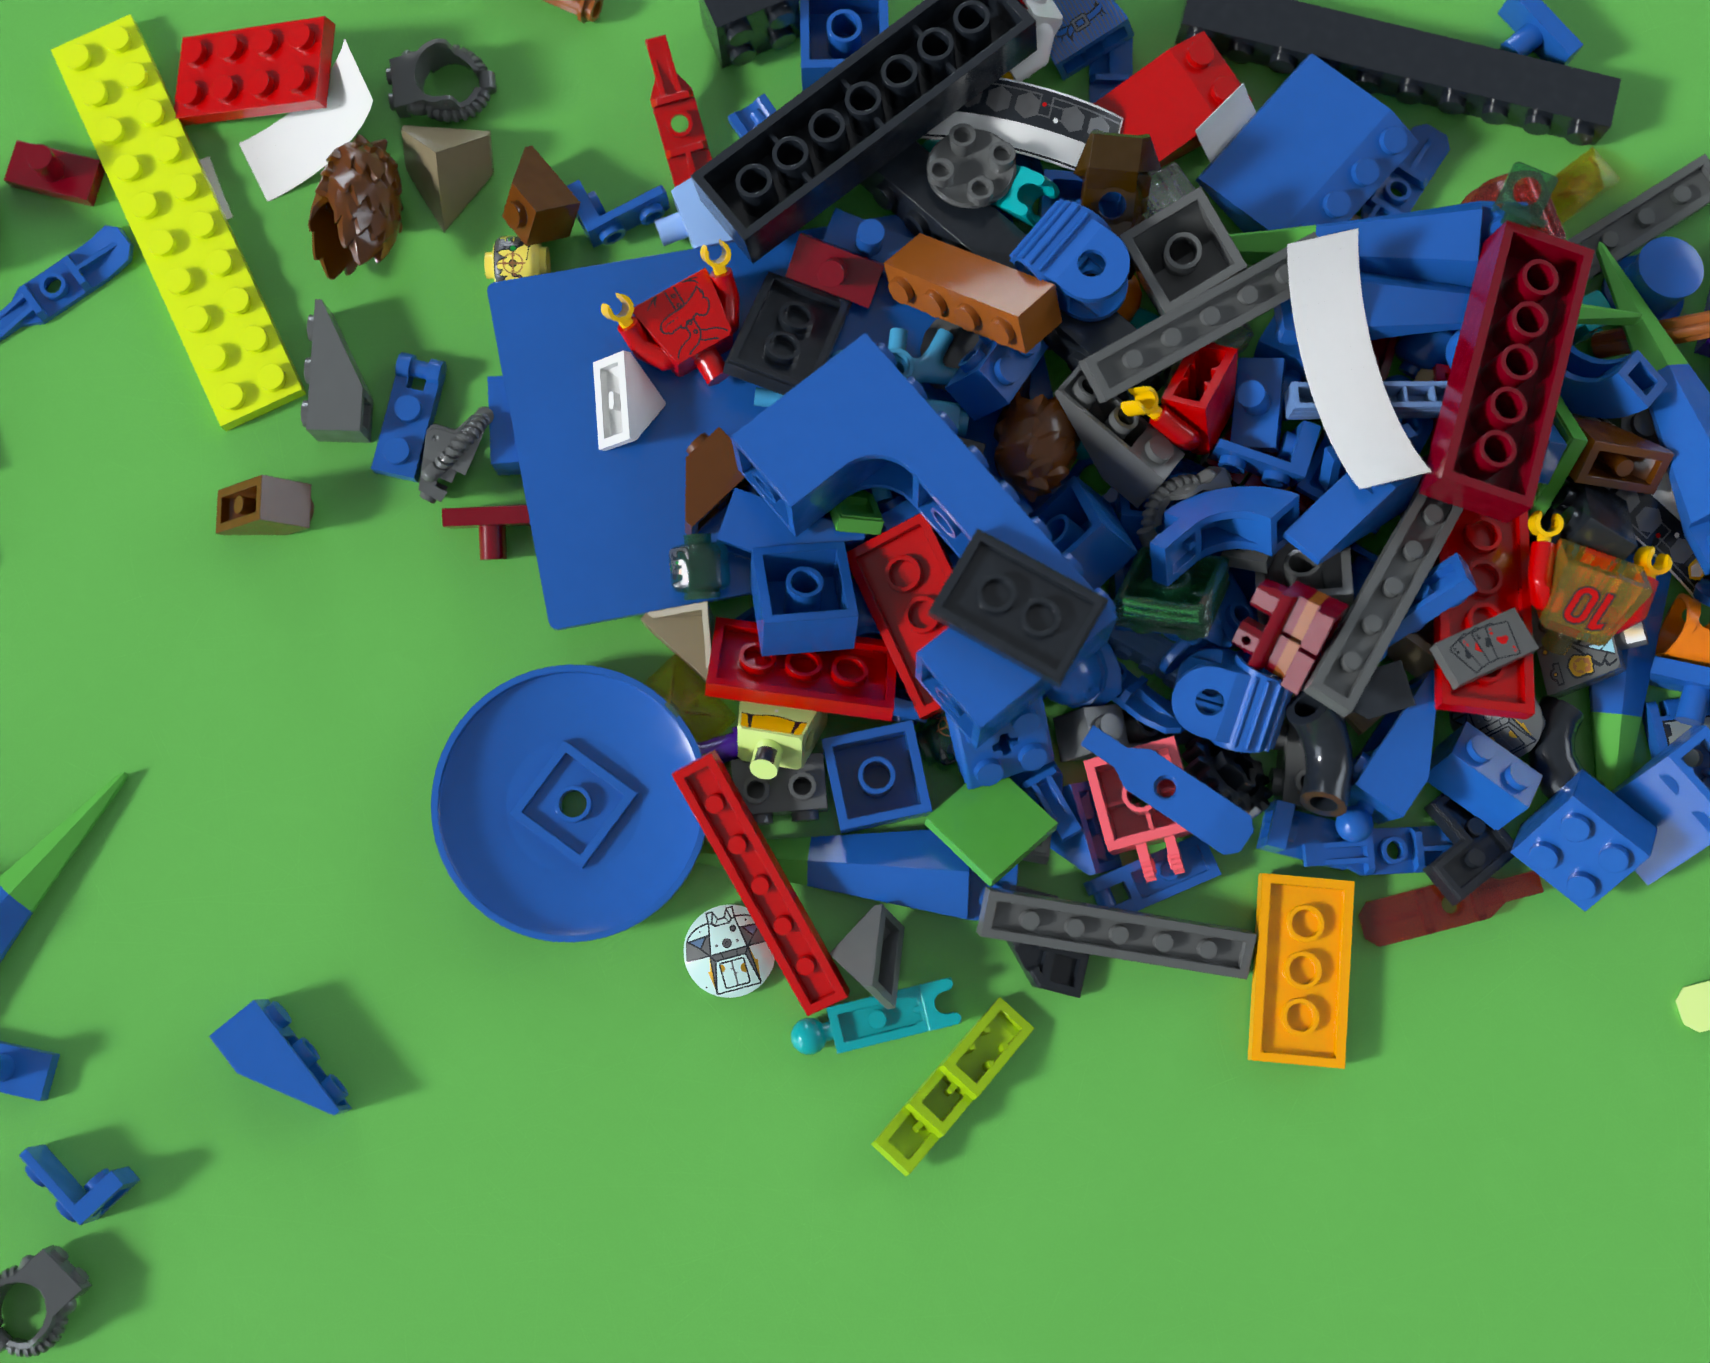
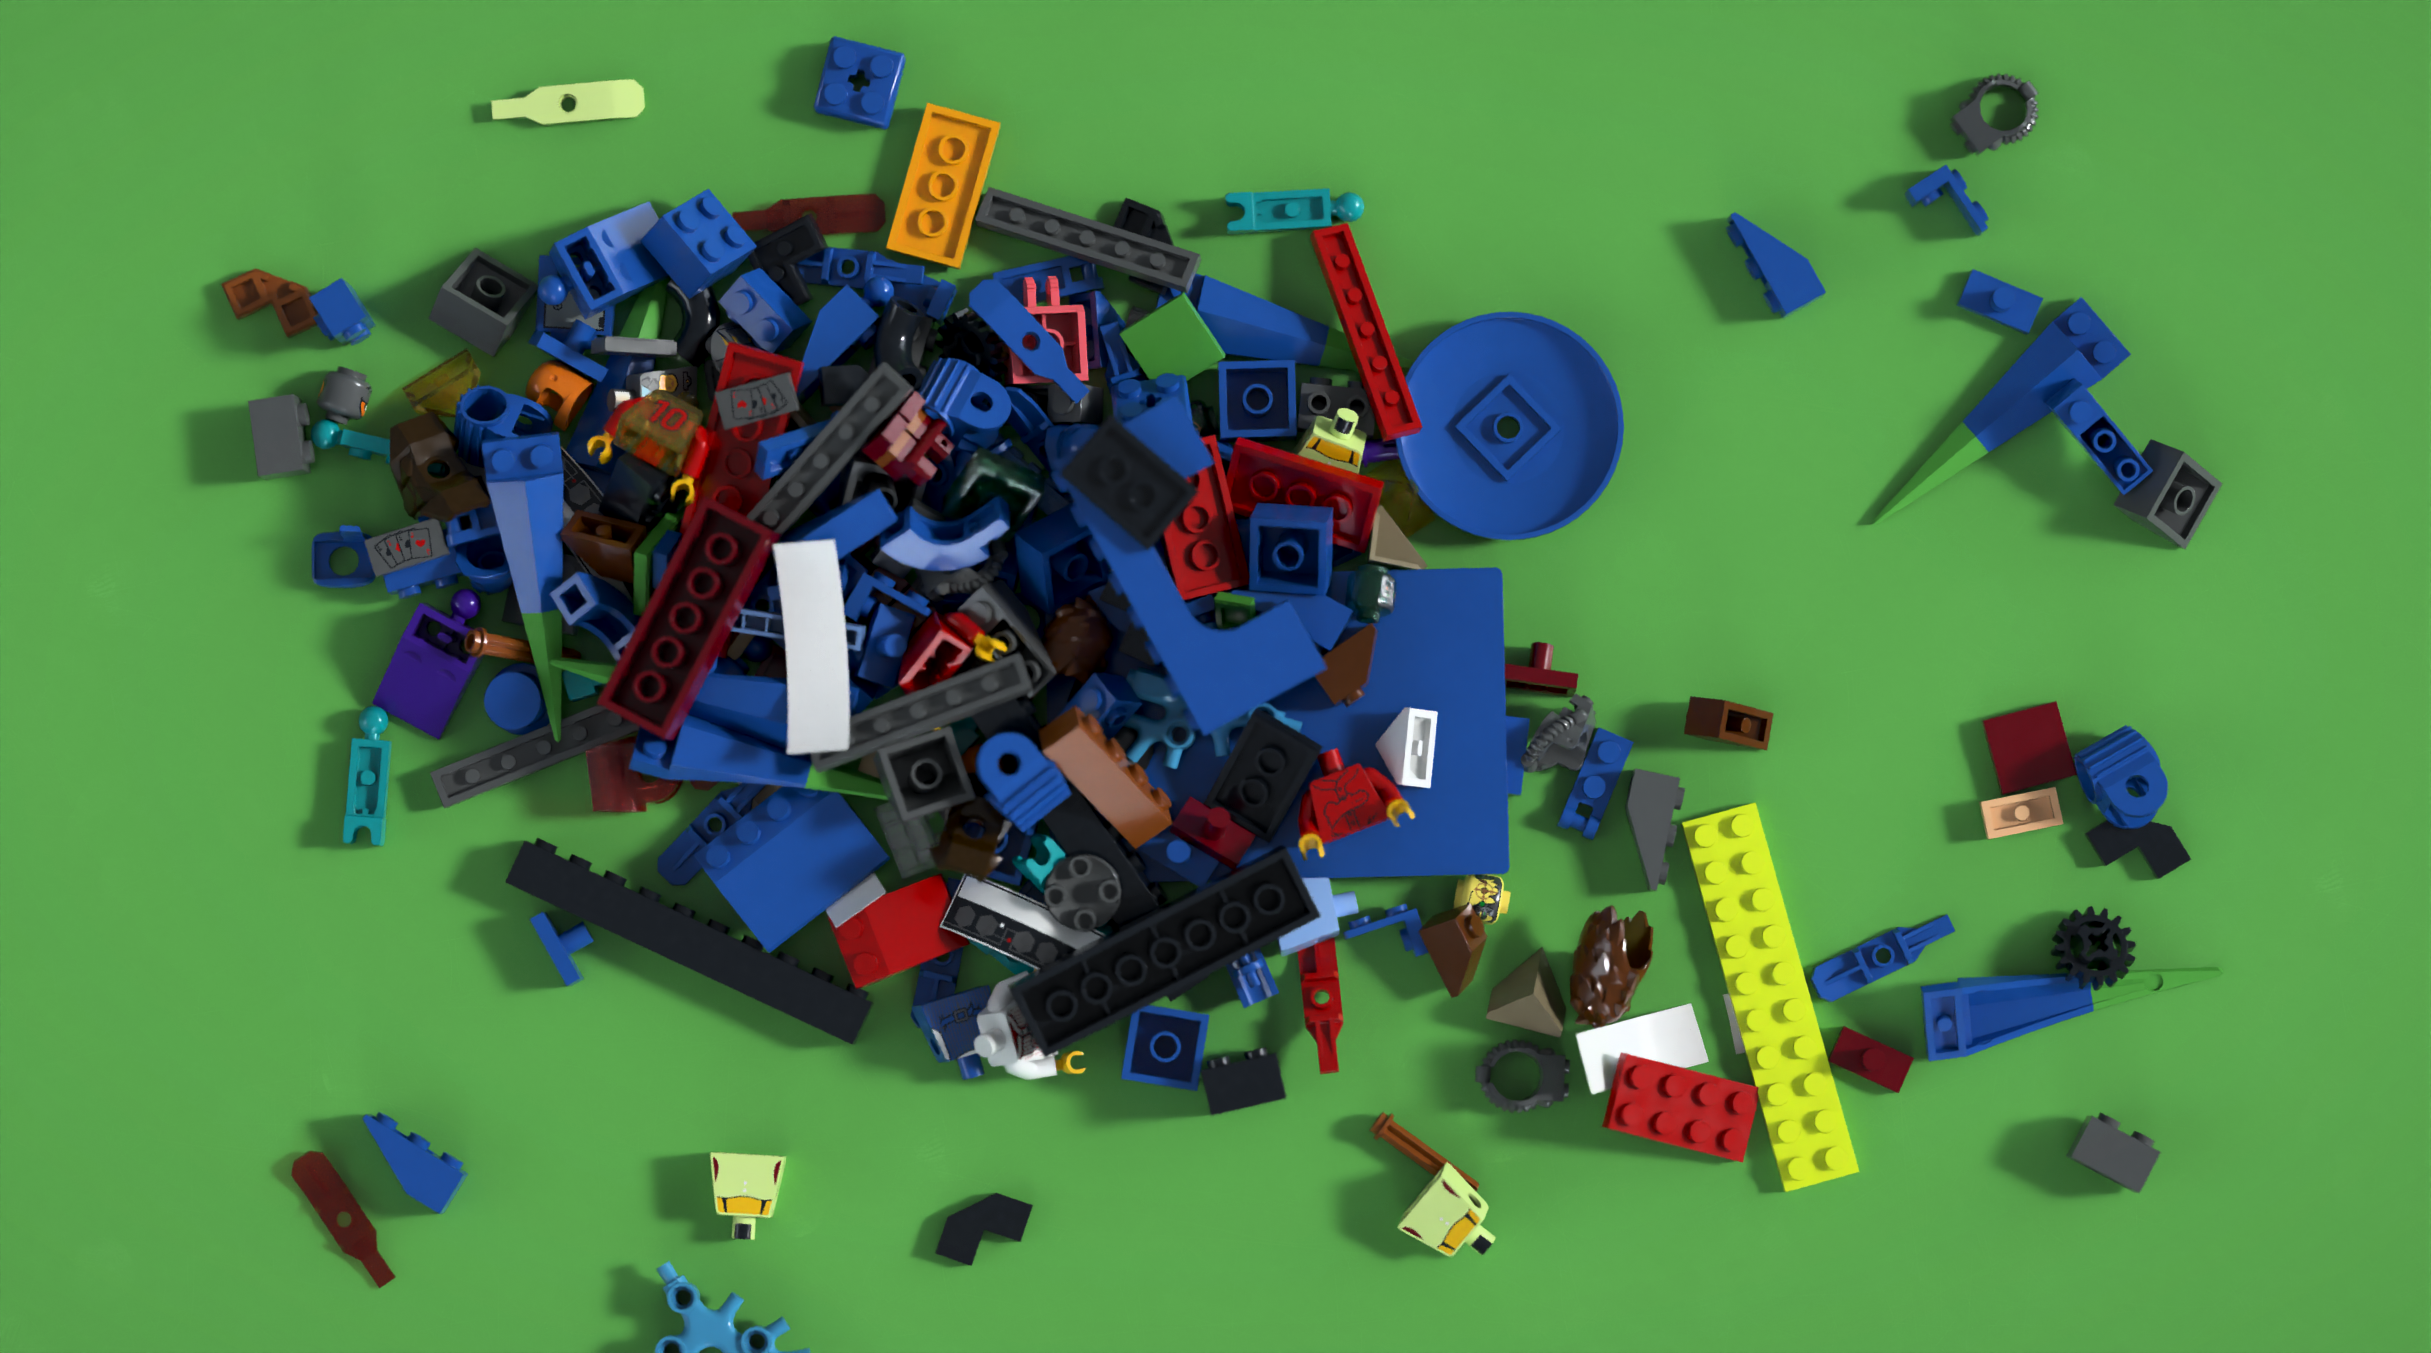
camera: 170 degrees left, 5 degrees up
(727, 952) = (1403, 286): light aqua dish -> none
(874, 954) = (1285, 260): dark grey slope -> none
(952, 1086) = (1241, 147): lime slope -> none
(1408, 1101) = (872, 104): none -> blue brick
(1524, 214) = (644, 749): clear green bracket -> none
(1582, 184) = (556, 803): clear yellow slope -> none
(1631, 701) = (634, 347): none -> tile

